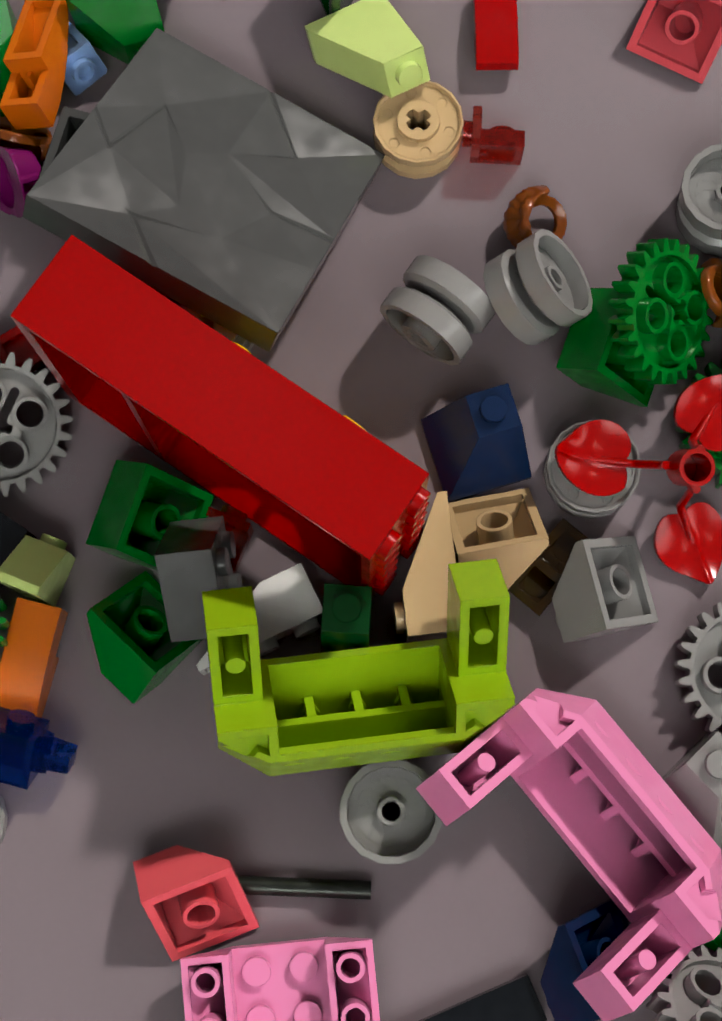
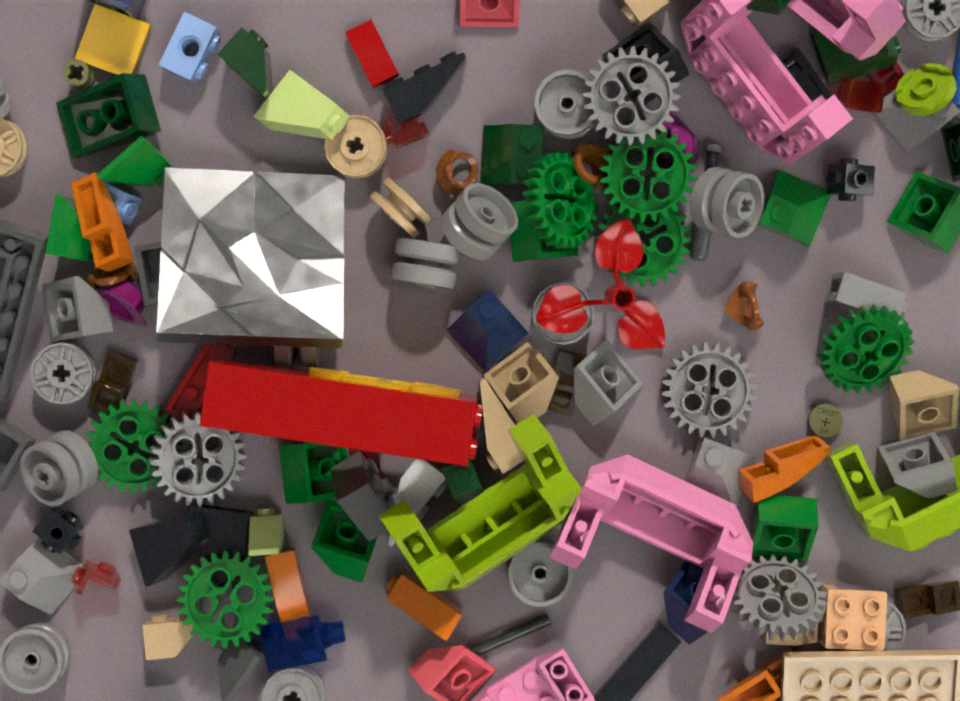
camera: 25 degrees left, 10 degrees up
(203, 776) = (428, 608): none -> orange slope
(440, 222) = (400, 207): none -> tan wheel
(544, 96) = (417, 94): none -> black slope
(617, 221) = (509, 153): none -> dark green slope

